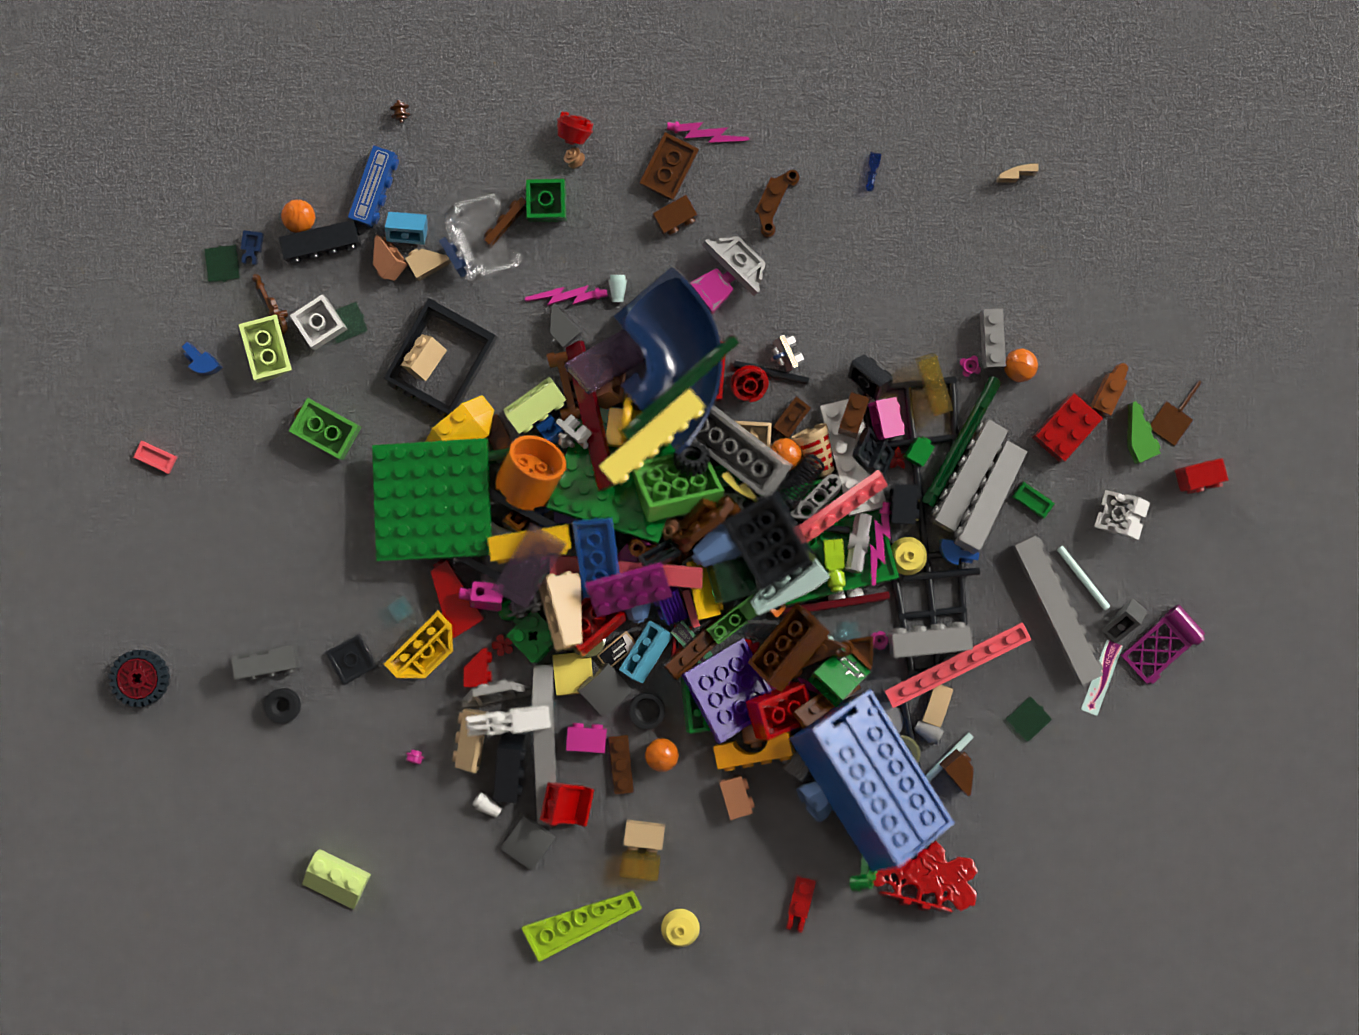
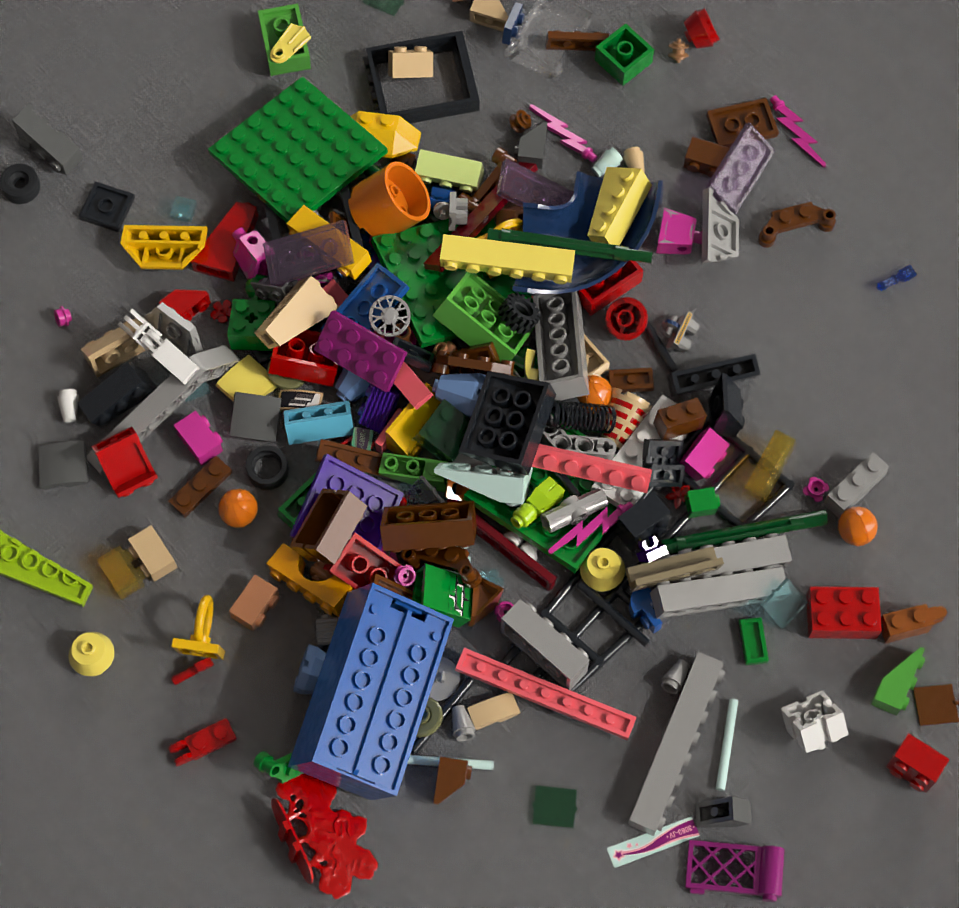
camera: 45 degrees right, 20 degrees down
(336, 430) = (289, 43): none -> light yellow piece
(534, 319) = (520, 121): none -> reddish brown wheel
(621, 549) = (389, 316): none -> light grey wheel
(634, 268) = (634, 158): none -> tan cone
(671, 322) = (618, 204): none -> light yellow wedge
(704, 201) = (741, 168): none -> clear purple tile
(737, 857) = (200, 641): none -> yellow tile
(739, 717) = (328, 526): none -> reddish brown piece
(750, 866) = (193, 670): none -> red bar
(812, 690) = (409, 571): none -> dark pink plate
(838, 361) = (707, 375): none -> black brick
(929, 518) = (652, 551): none -> tile
(954, 516) = (673, 568): none -> dark tan fence
(1015, 572) = (675, 677): none -> light grey cone
(1030, 461) = (784, 603): none -> clear light blue piece

